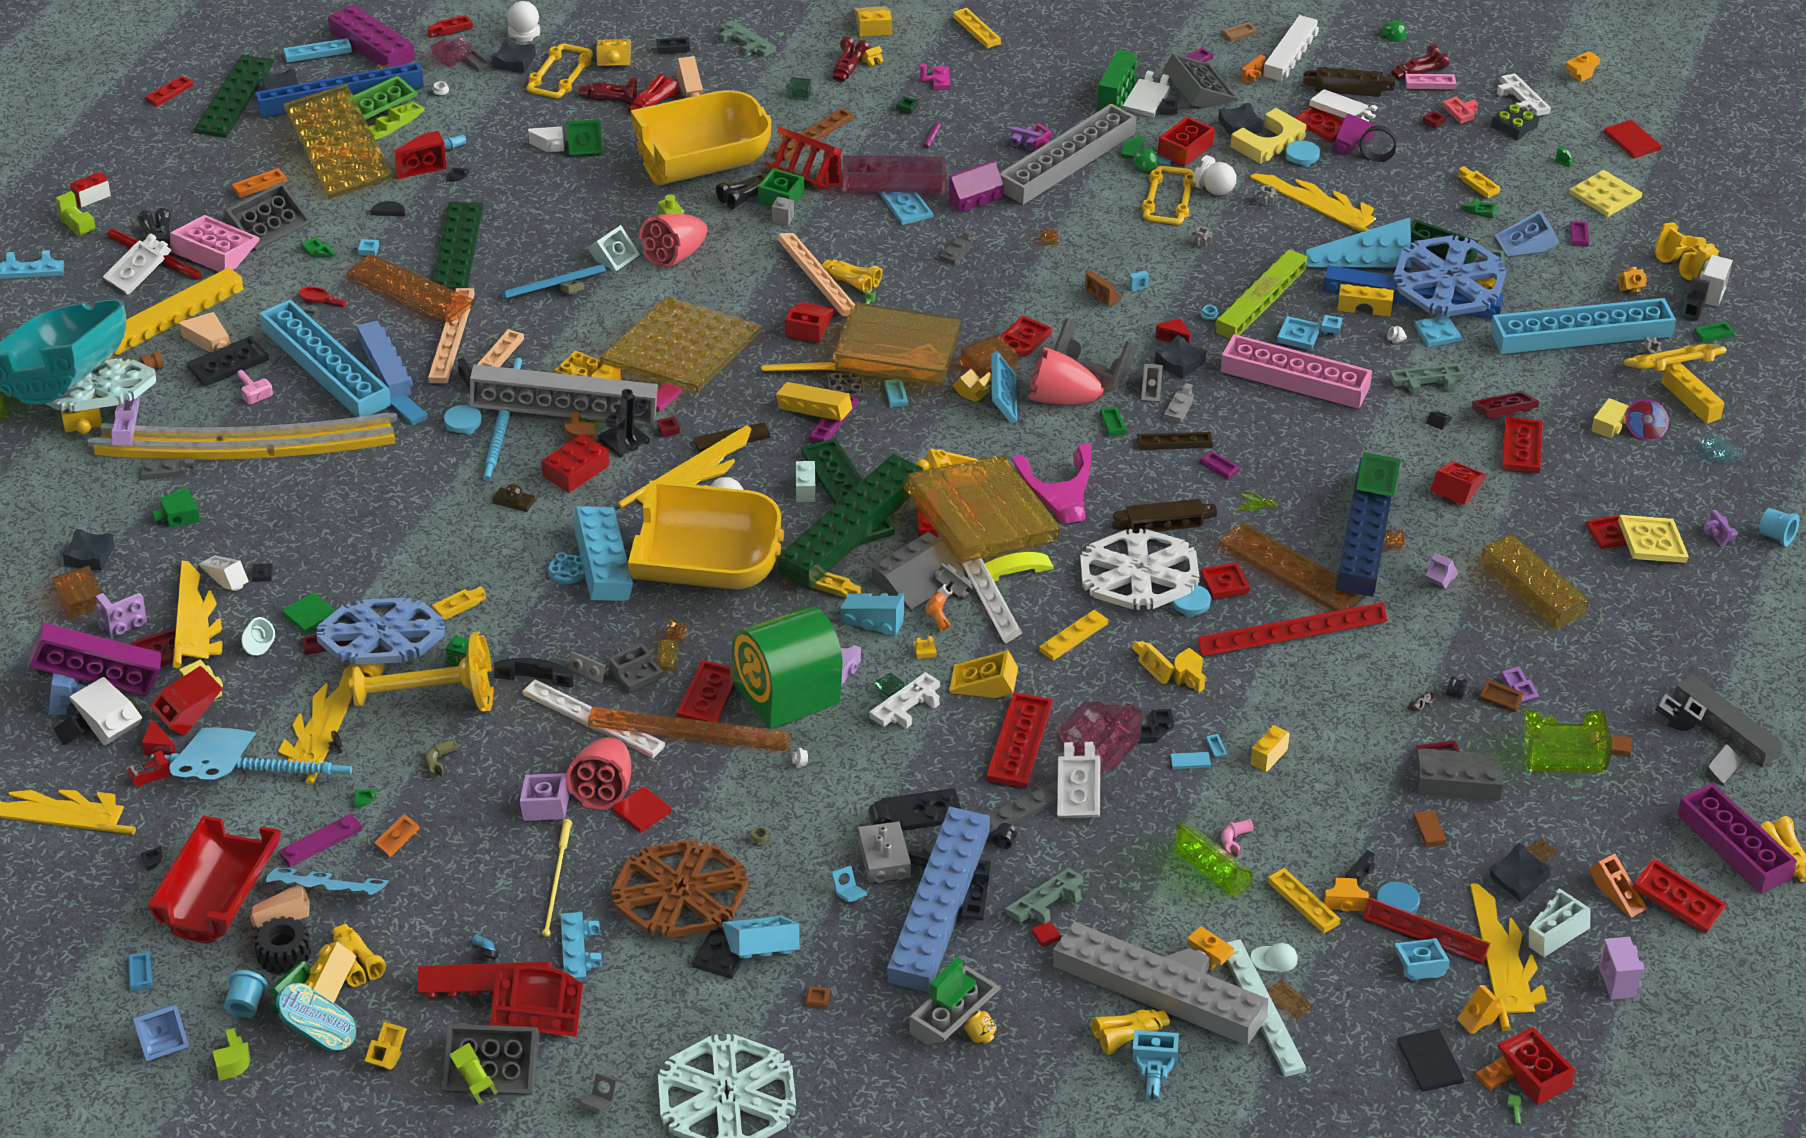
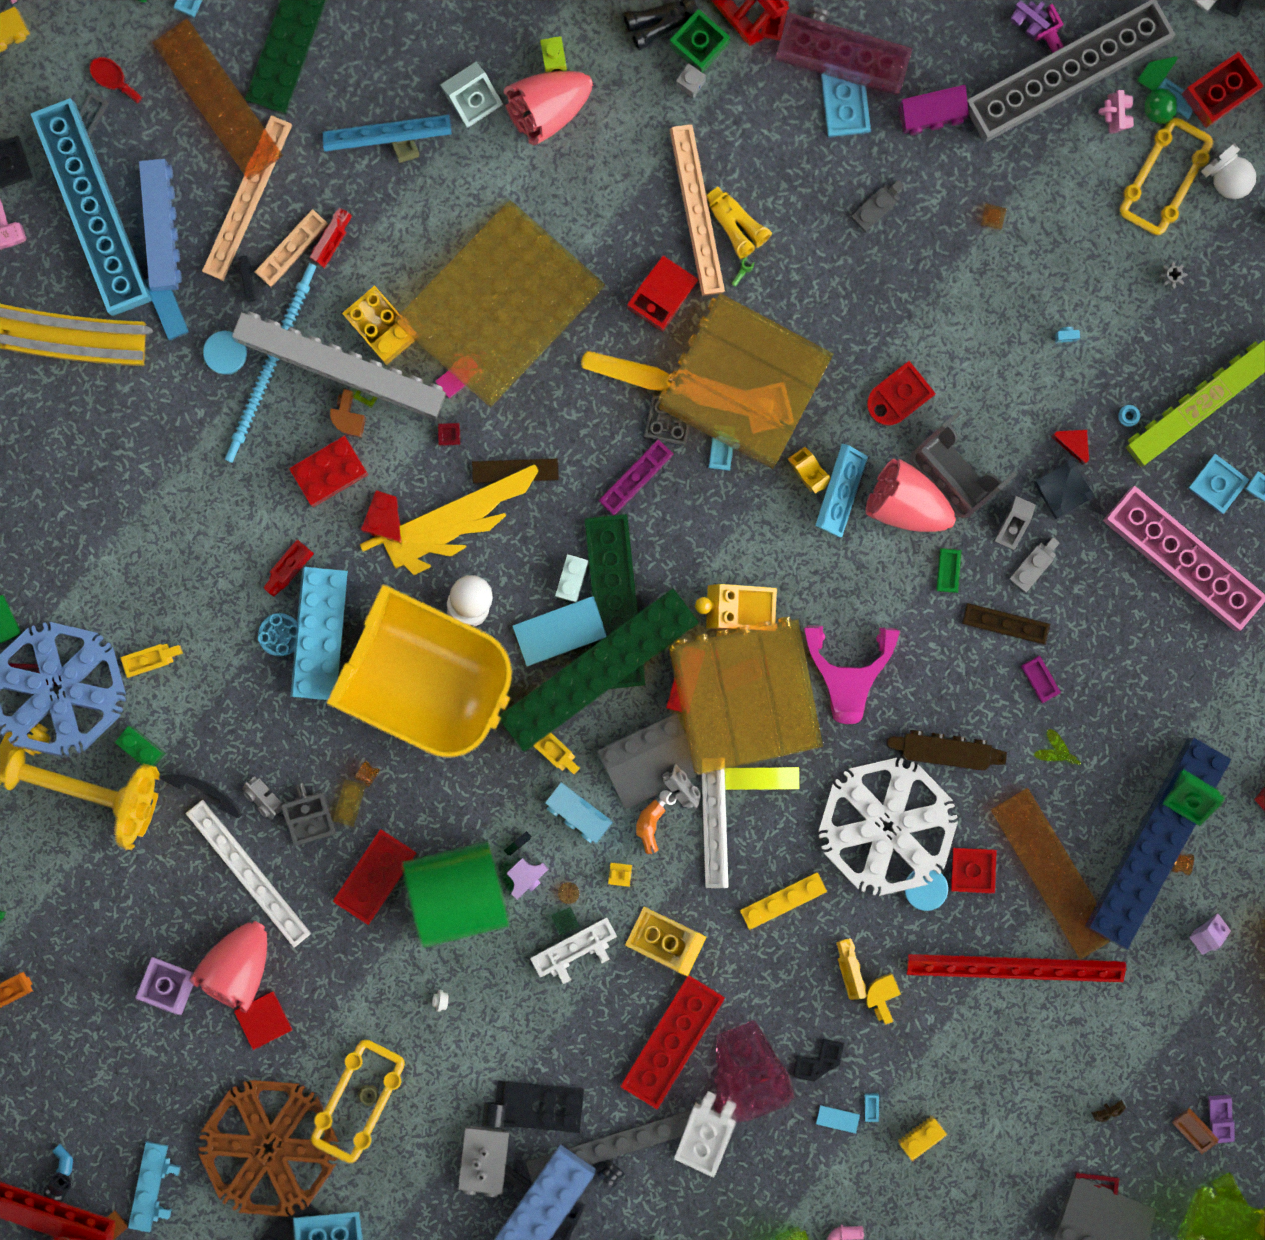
camera: 20 degrees right, 45 degrees up
(437, 751) = (76, 878): olive piece -> none
(513, 498) = (249, 504): dark brown tile -> none
(528, 343) = (331, 238): none -> red hinge
(559, 526) = (287, 567): none -> red hinge
(566, 825) = (171, 1047): light yellow piece -> none
(624, 434) = (395, 437): black piece -> none
(631, 481) = (383, 518): none -> red wing
(690, 729) = (340, 925): clear orange plate -> none
(766, 854) = (324, 1120): none -> yellow bar
(807, 511) = (560, 631): none -> medium azure tile
(814, 401) = (620, 450): yellow brick -> none
(848, 891) = (434, 1199): medium azure bracket -> none
(884, 668) = (568, 893): none -> clear orange tile
(978, 355) = (844, 423): clear orange brick -> none
(1101, 288) = (1019, 340): dark orange bracket -> none
(1114, 169) = (1115, 111): none -> bright pink hips
(1457, 687) = (1153, 1106): black wheel -> none

